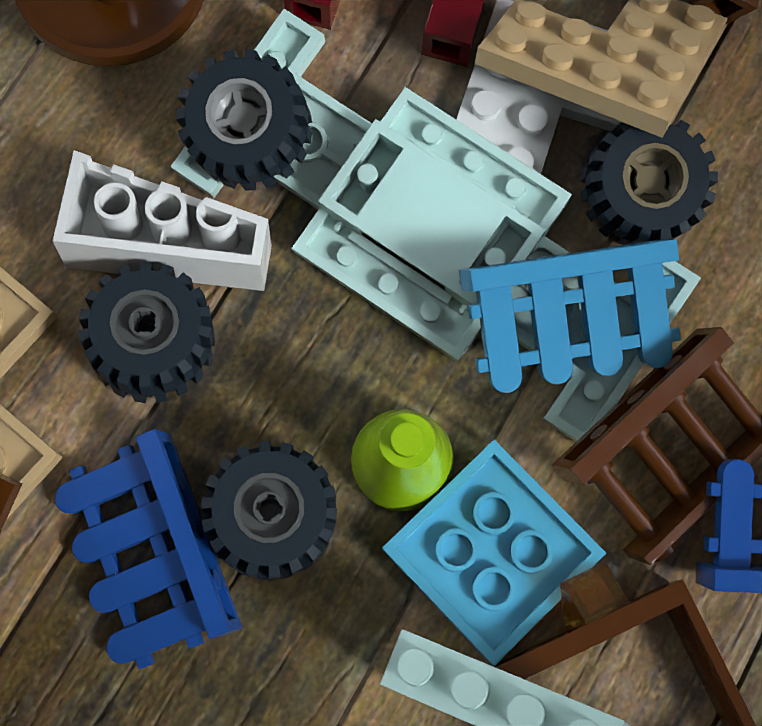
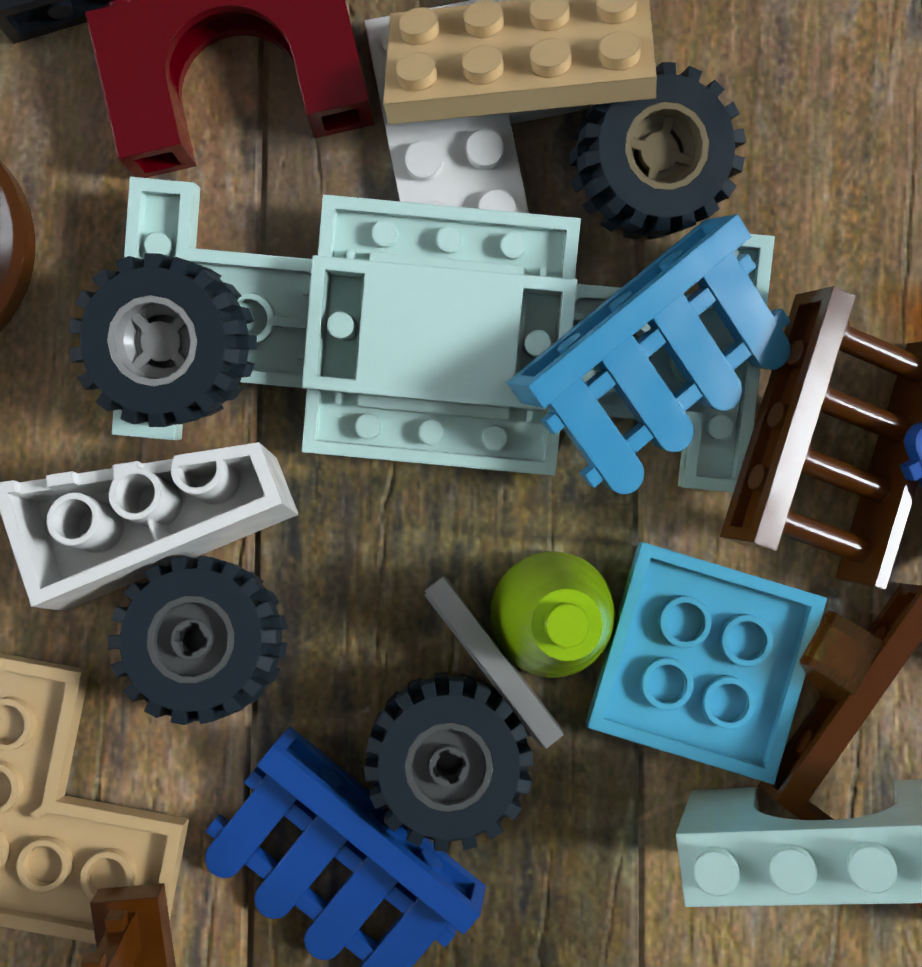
camera: 25 degrees left, 10 degrees up
(341, 462) = (493, 662): none -> light grey tile

